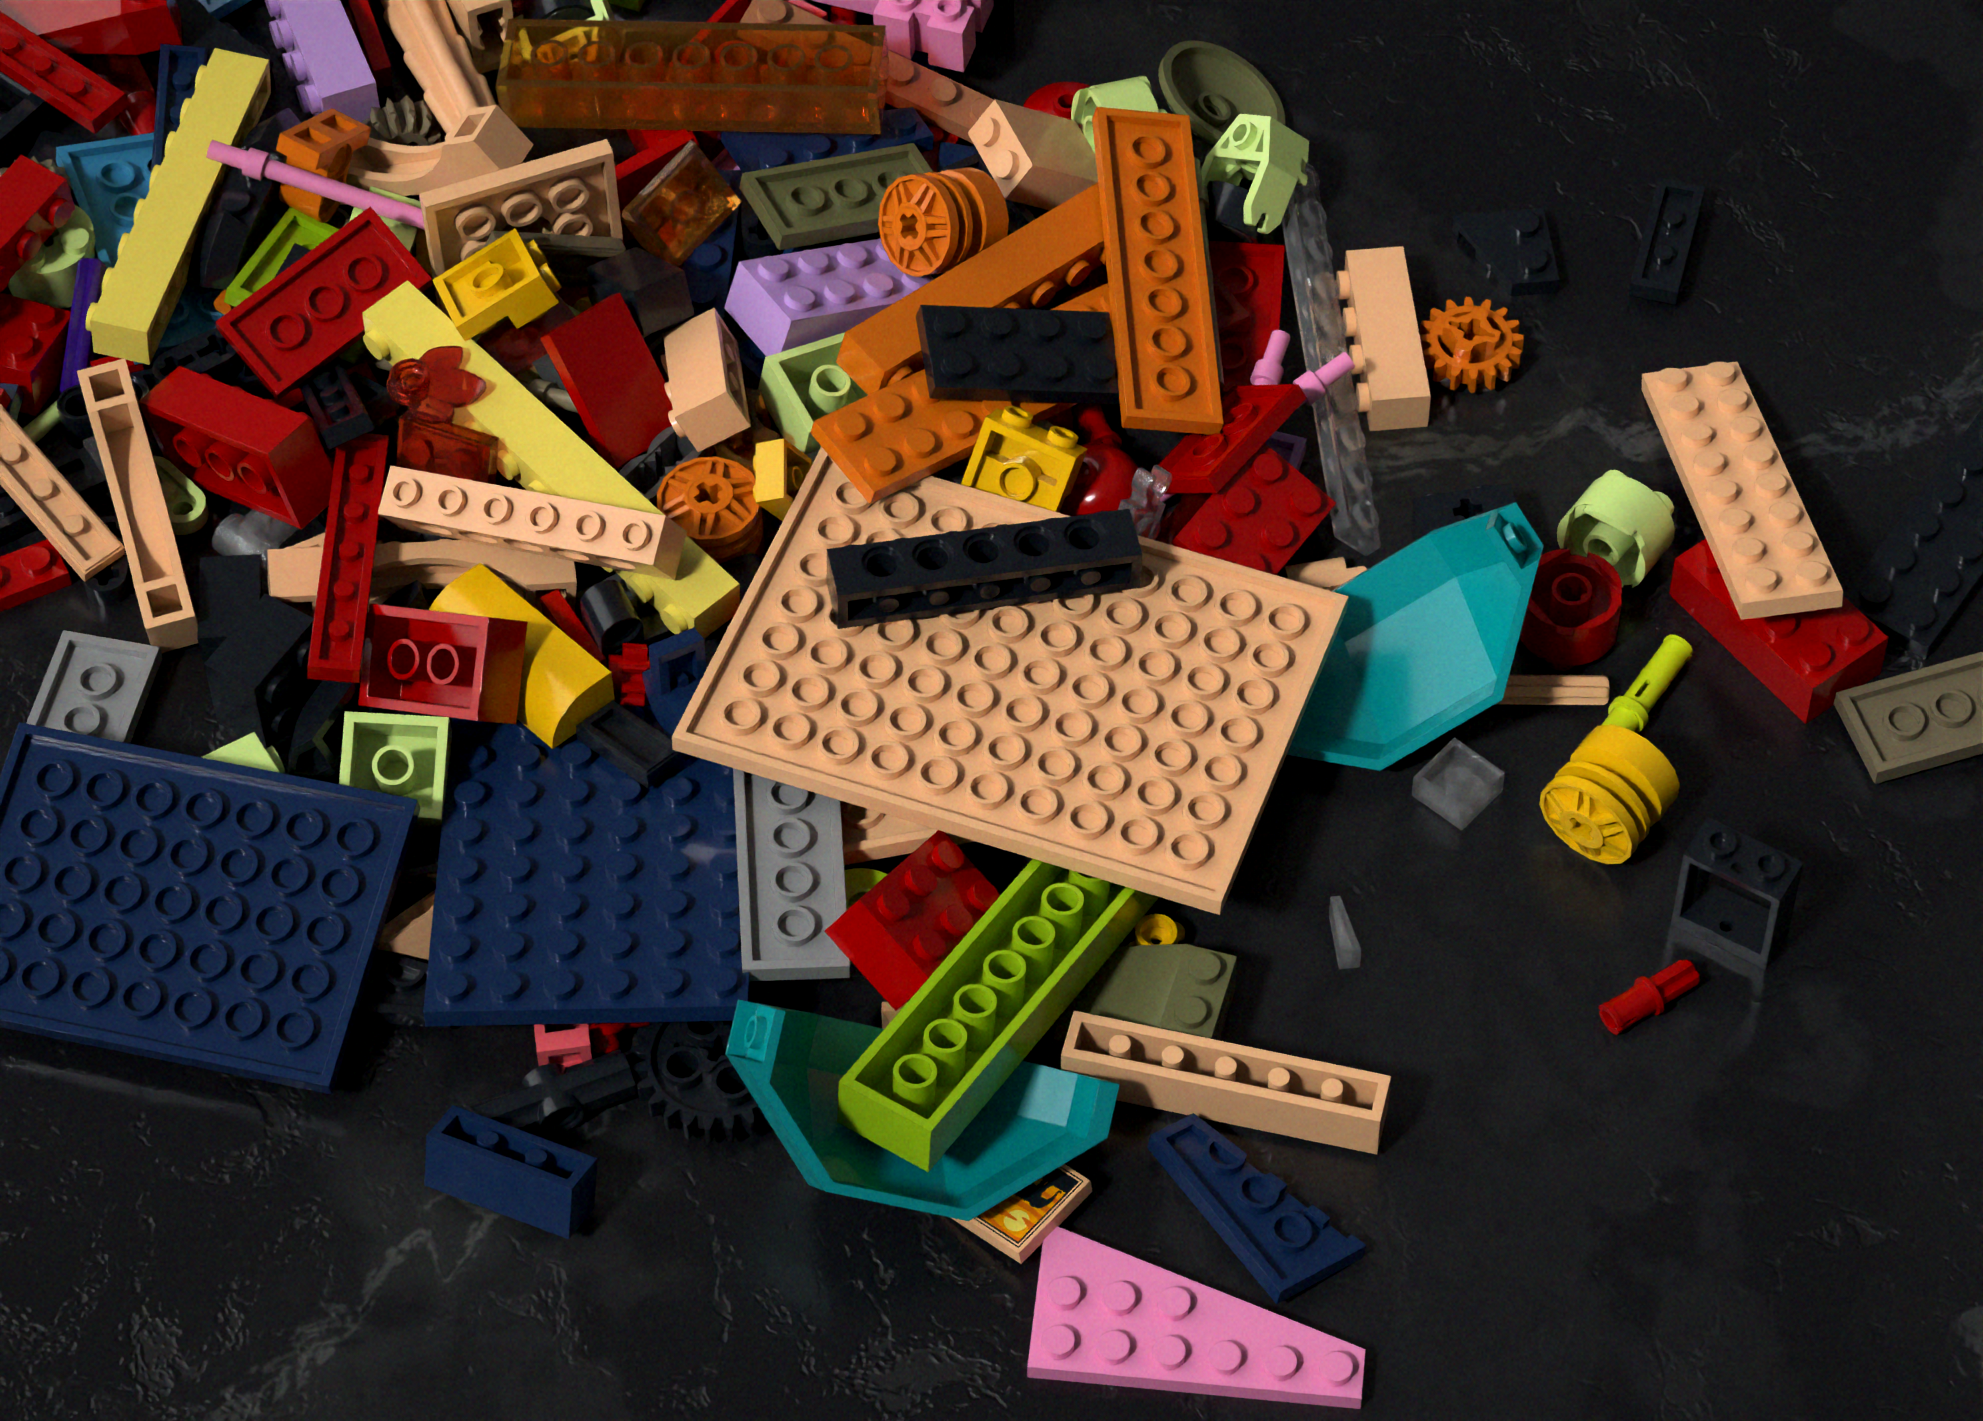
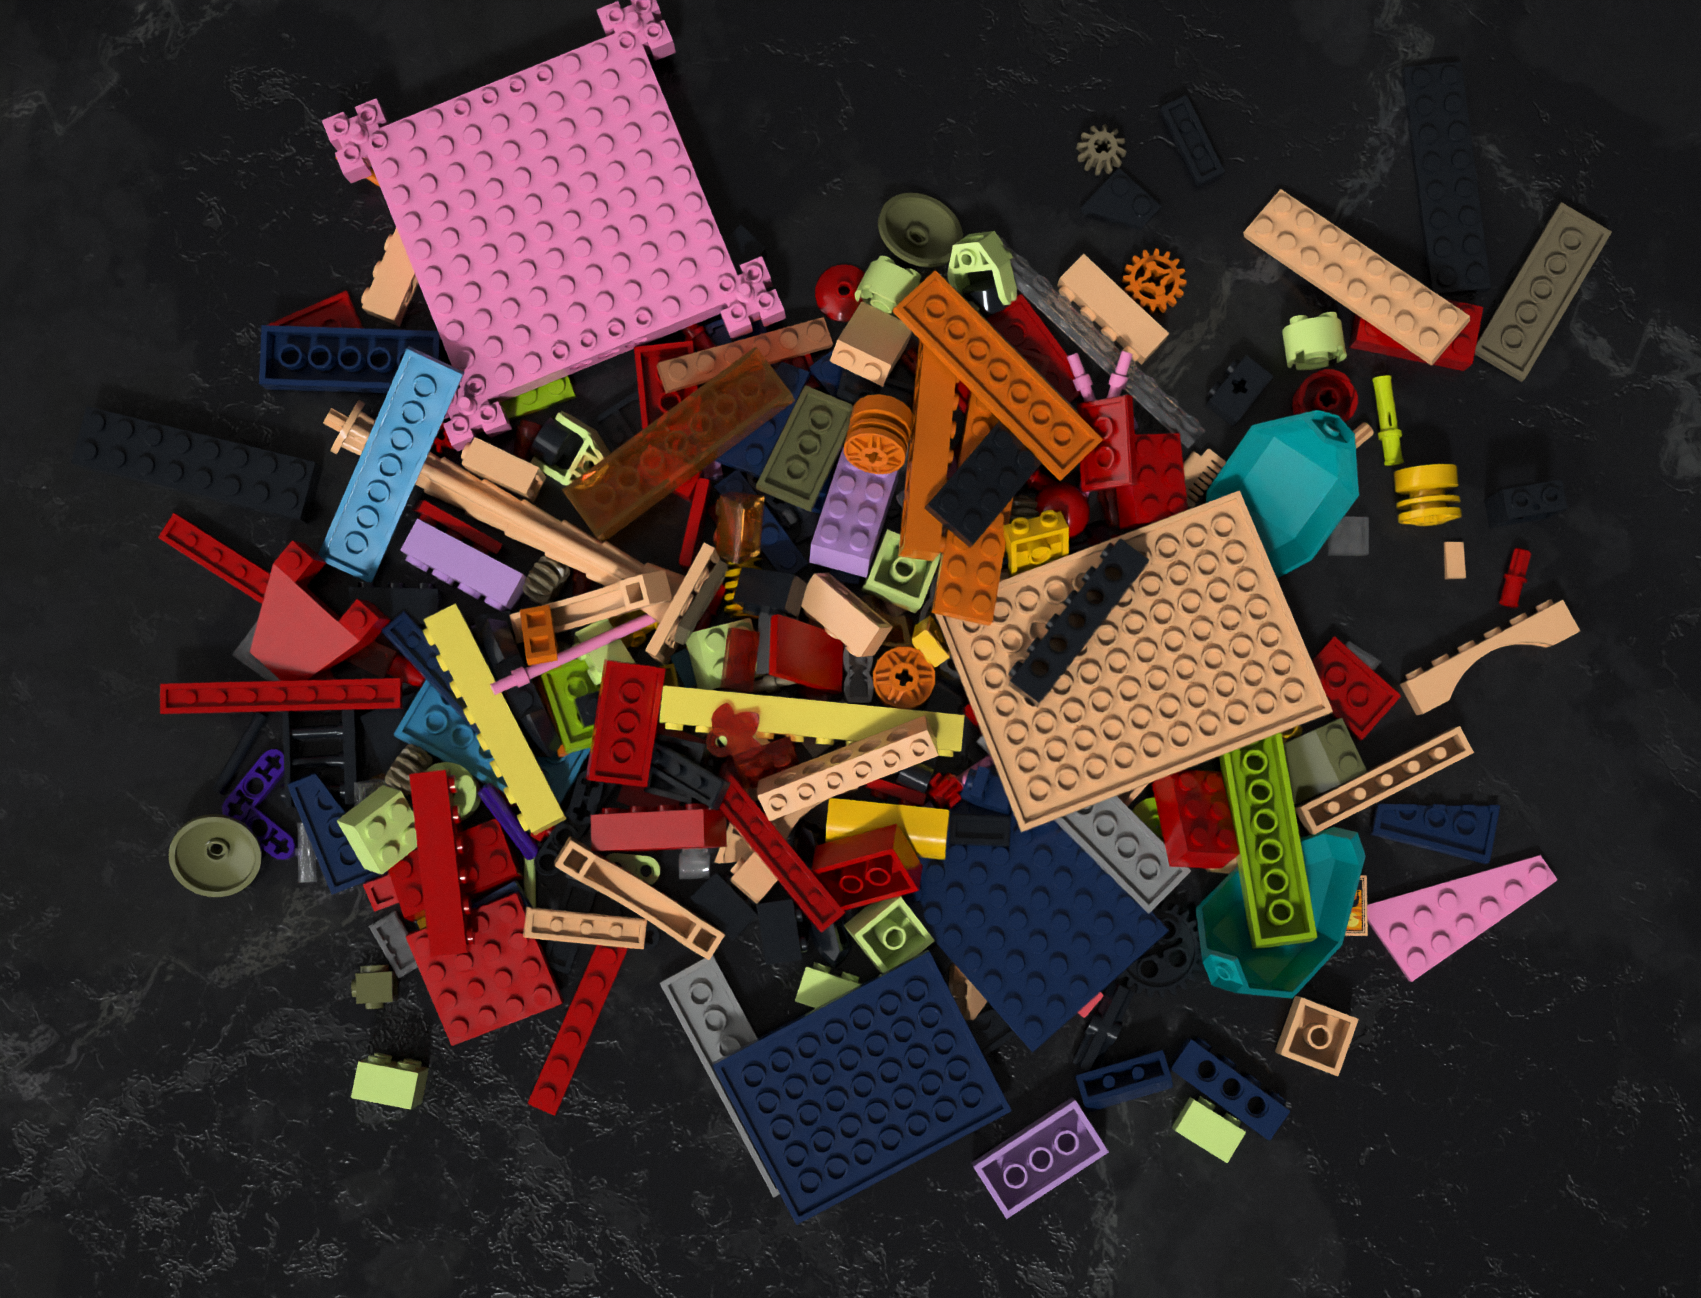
camera: 40 degrees left, 30 degrees up
(306, 1174) = (1039, 1157): none -> lavender brick
(496, 283) = (712, 656): yellow plate -> none
(564, 1326) = (1208, 1129): none -> yellowish green brick
(650, 1375) = (1264, 1121): none -> dark blue brick
(824, 1316) = (1316, 1035): none -> light nougat brick
(1145, 500) = (1097, 517): clear plate -> none
(1286, 954) = (1353, 688): none -> red plate
(1537, 173) = (1096, 140): none -> dark tan gear
(1582, 922) = (1454, 560): none -> light nougat piece
(1627, 1072) = (1435, 686): none -> light nougat arch

